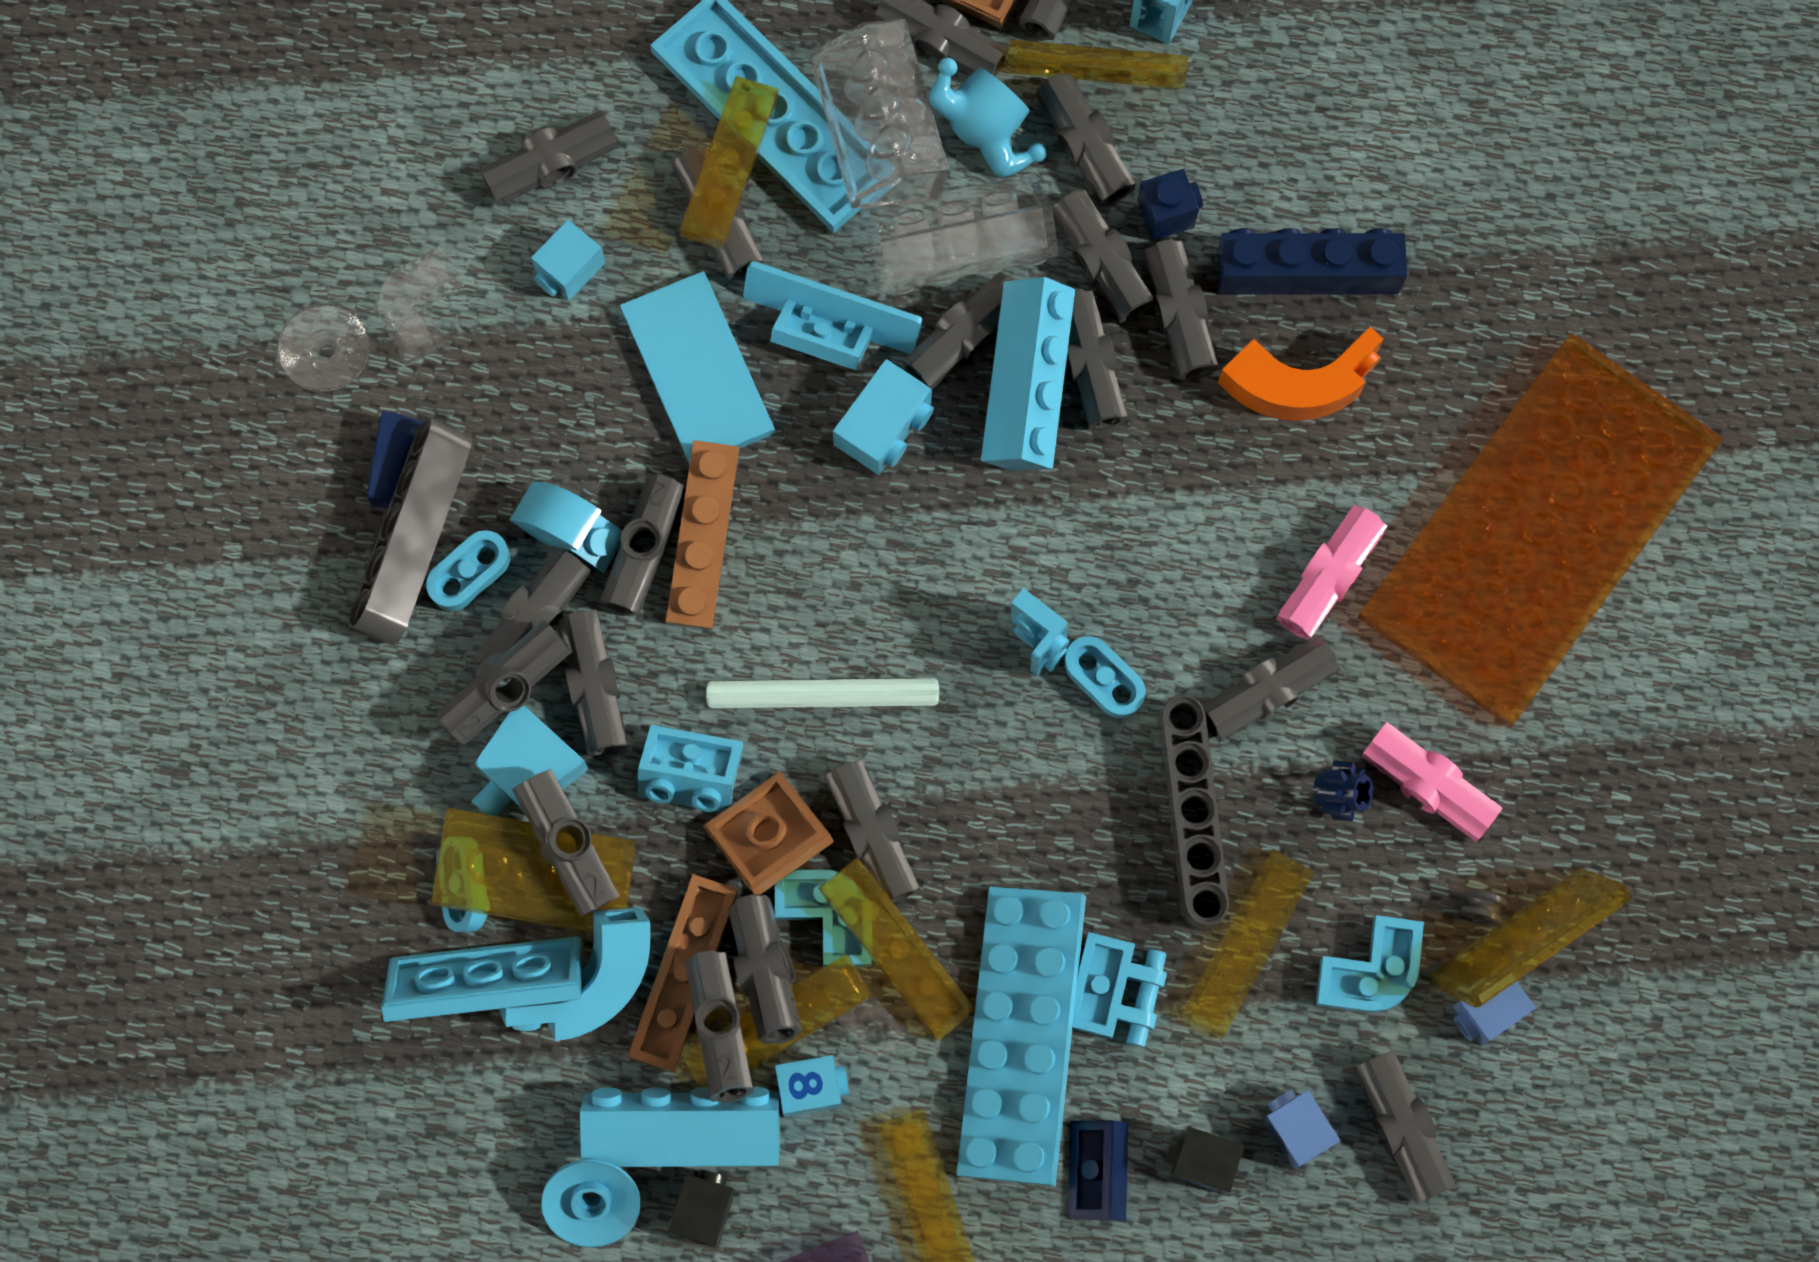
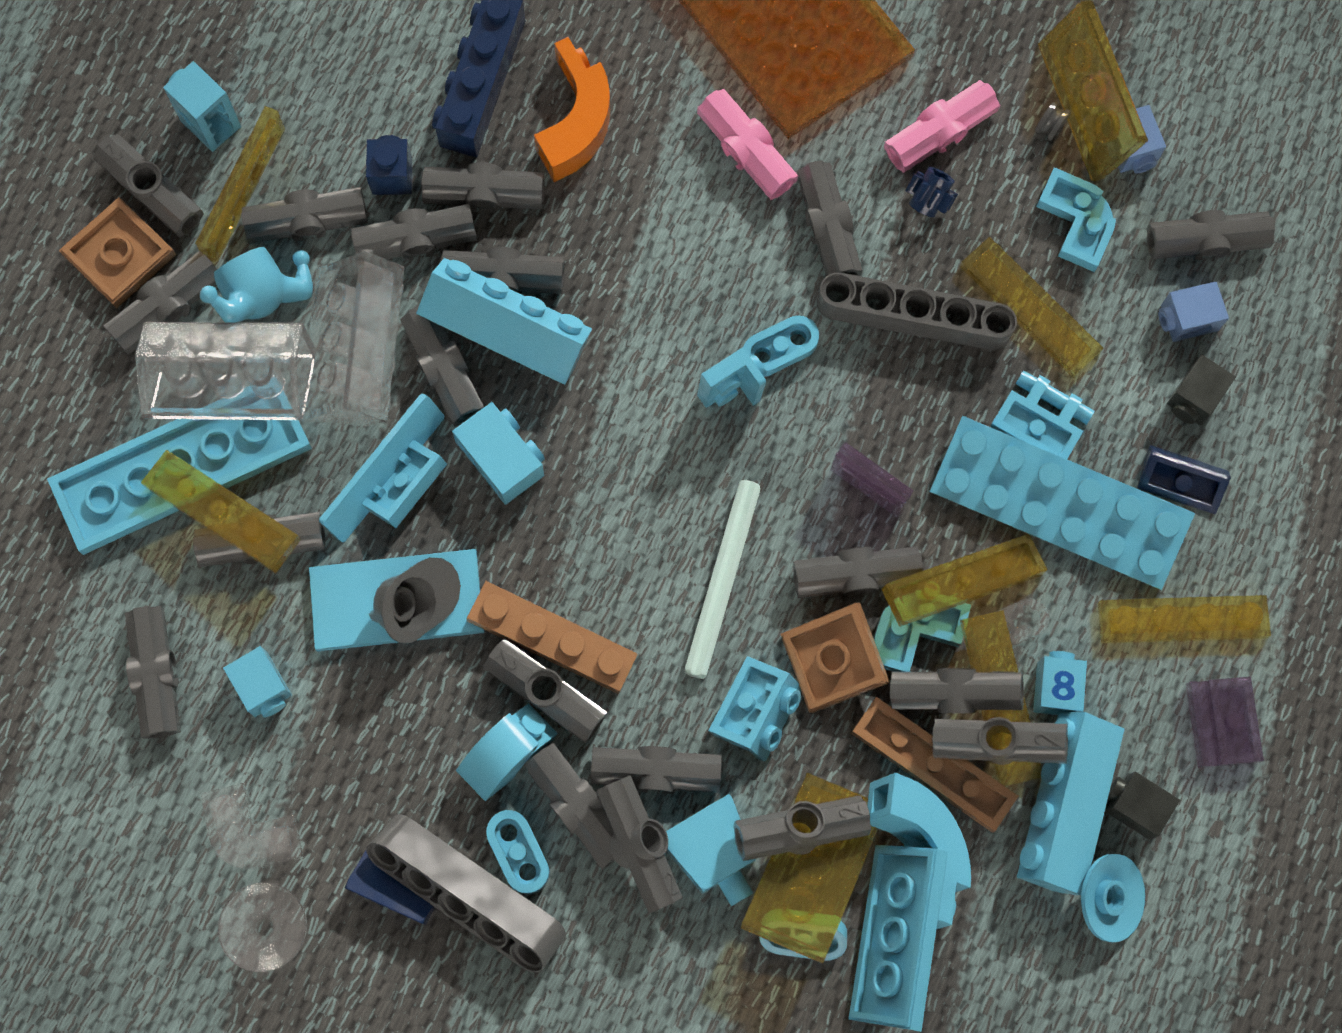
camera: 75 degrees left, 0 degrees up
(694, 383) = (416, 599): none -> dark grey piece
(986, 799) = (871, 479): none -> clear purple plate

